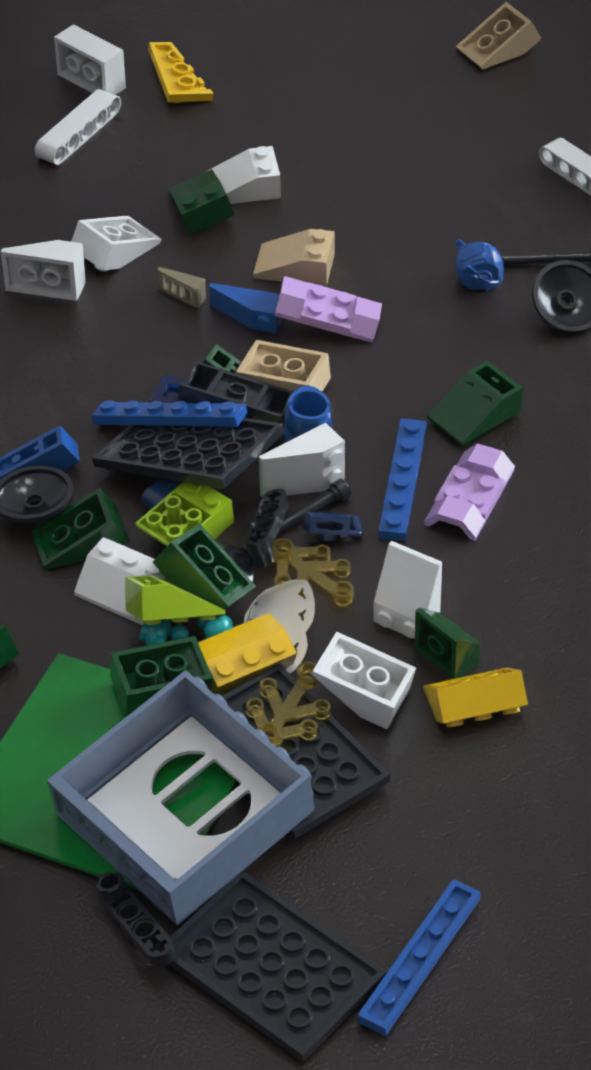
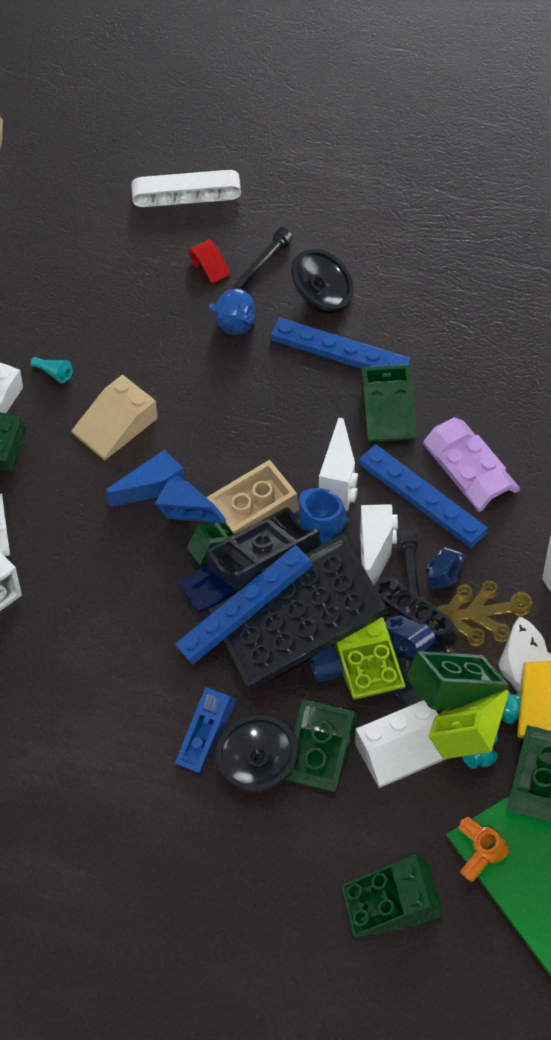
camera: 55 degrees left, 10 degrees up
(56, 676) = (481, 840): none -> orange axle
(187, 288) = (82, 511): dark tan slope -> none
(232, 529) = (409, 635): none -> dark blue piece
(243, 332) = (184, 502): none -> blue slope
(313, 203) = (58, 369): none -> teal cone
(328, 309) = (204, 430): lavender piece -> none
(368, 402) = (339, 467): none -> white slope
(513, 351) = (333, 346): none -> blue plate
(521, 227) = (211, 260): none -> red panel

